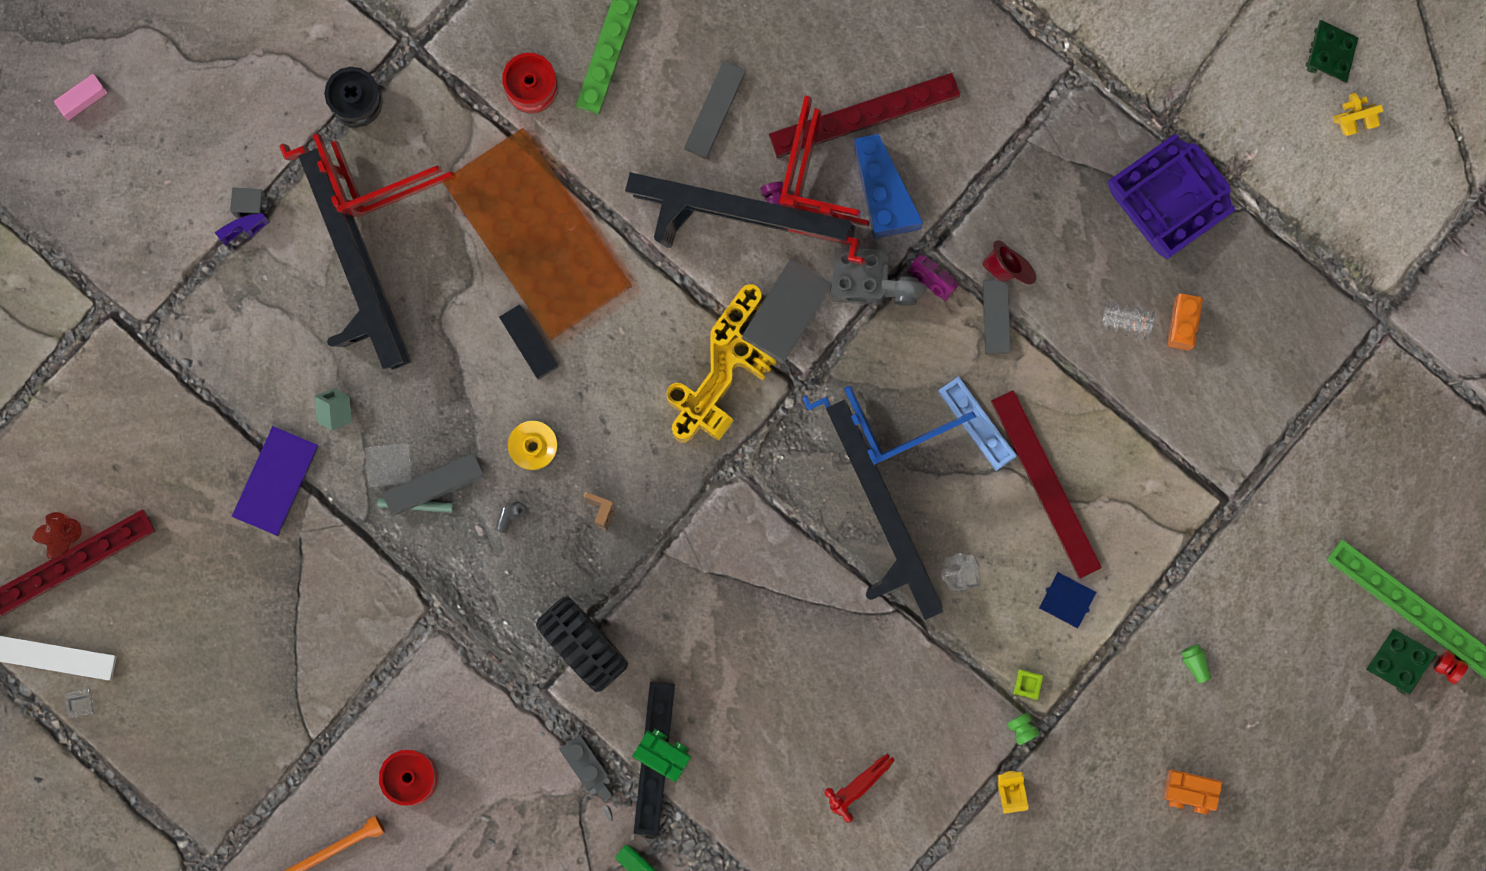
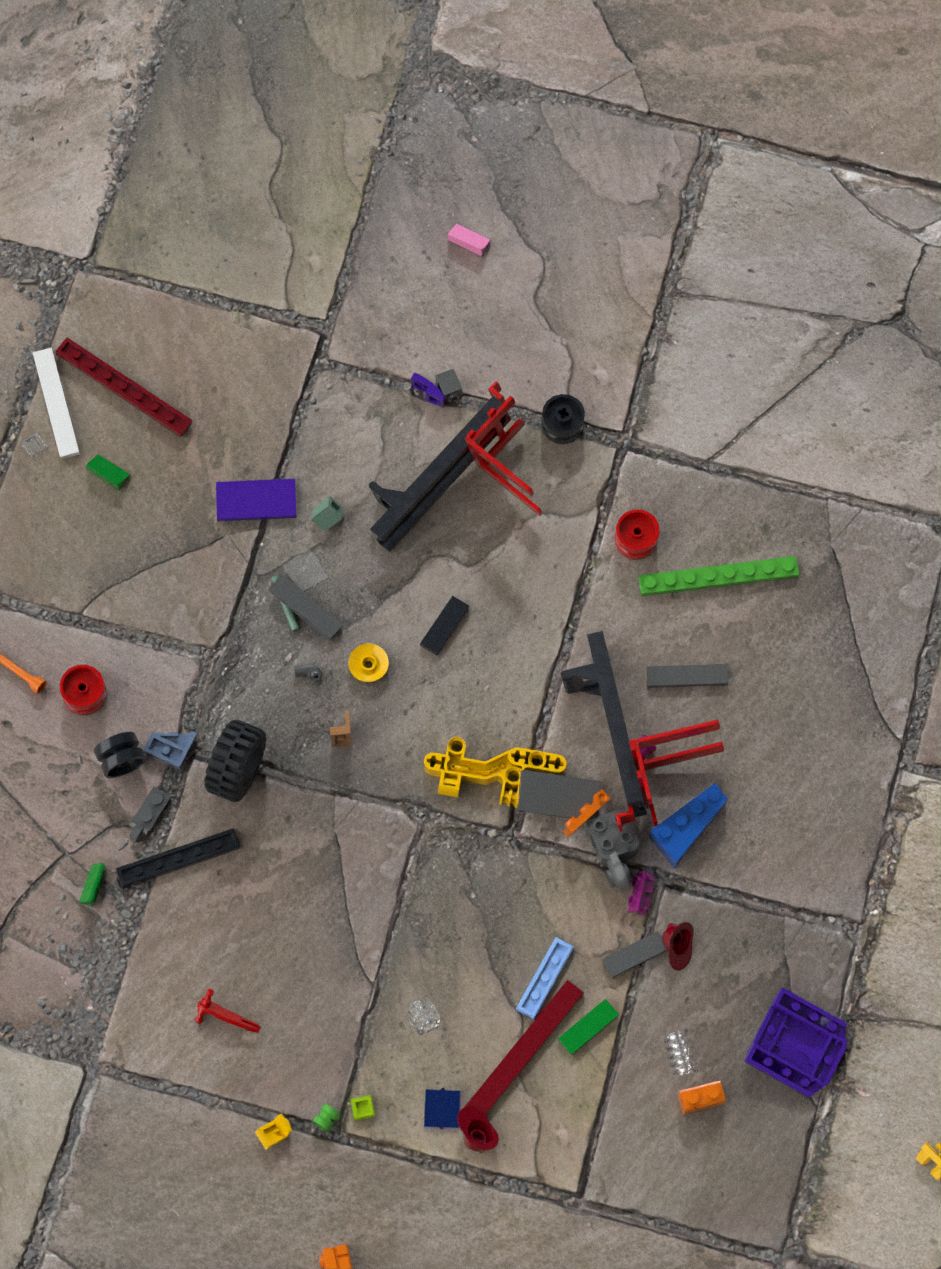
camera: 60 degrees right, 10 degrees down
(55, 535) = (147, 373): clear red plate -> none
(155, 633) = (107, 471): none -> green slope
(506, 770) = (119, 754): none -> black wheel
(522, 709) = (170, 747): none -> sand blue wing
(537, 234) = (527, 594): clear orange plate -> none
(662, 756) = (181, 860): green brick -> none
(821, 289) = (587, 812): none -> orange hinge
(871, 113) = (747, 792): dark red plate -> none
(908, 565) = (469, 899): black piece -> none
(1051, 403) = (588, 1027): none -> green tile
(1112, 573) = (477, 1130): none -> dark red piece
(1196, 662) = (440, 1228): bright green cone -> none

